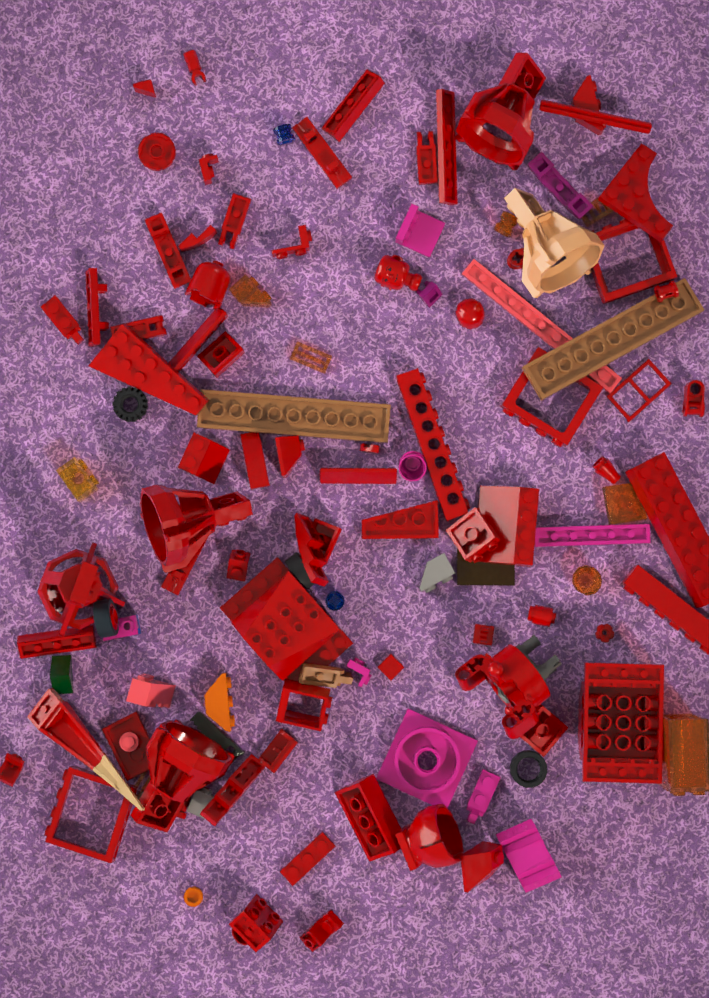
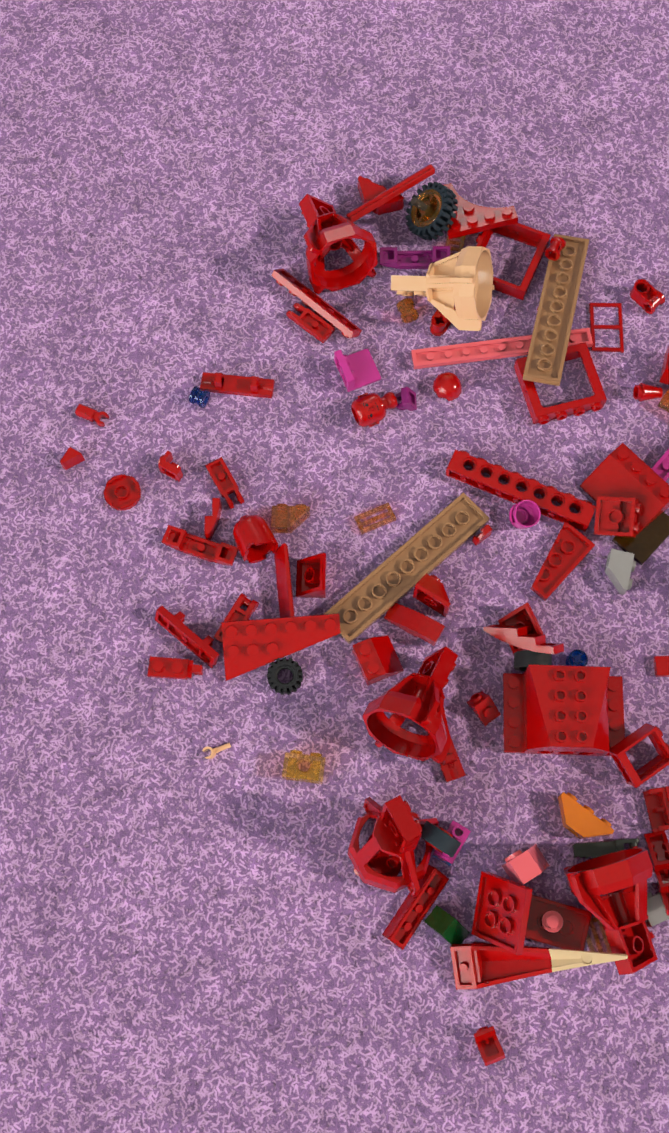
camera: 40 degrees left, 15 degrees down
(32, 405) = (216, 750): none -> light nougat hand
(56, 813) = (560, 1039): red window -> none
(100, 702) = (502, 912): none -> red plate
(305, 237) = (287, 447): red bracket -> none
(324, 675) = (630, 719): medium nougat hinge -> none
(353, 105) = (225, 338): red slope -> none
(358, 475) = (494, 561): red slope -> none
(358, 666) = (643, 688): dark pink bracket -> none
(608, 164) = (431, 211): none -> wheel

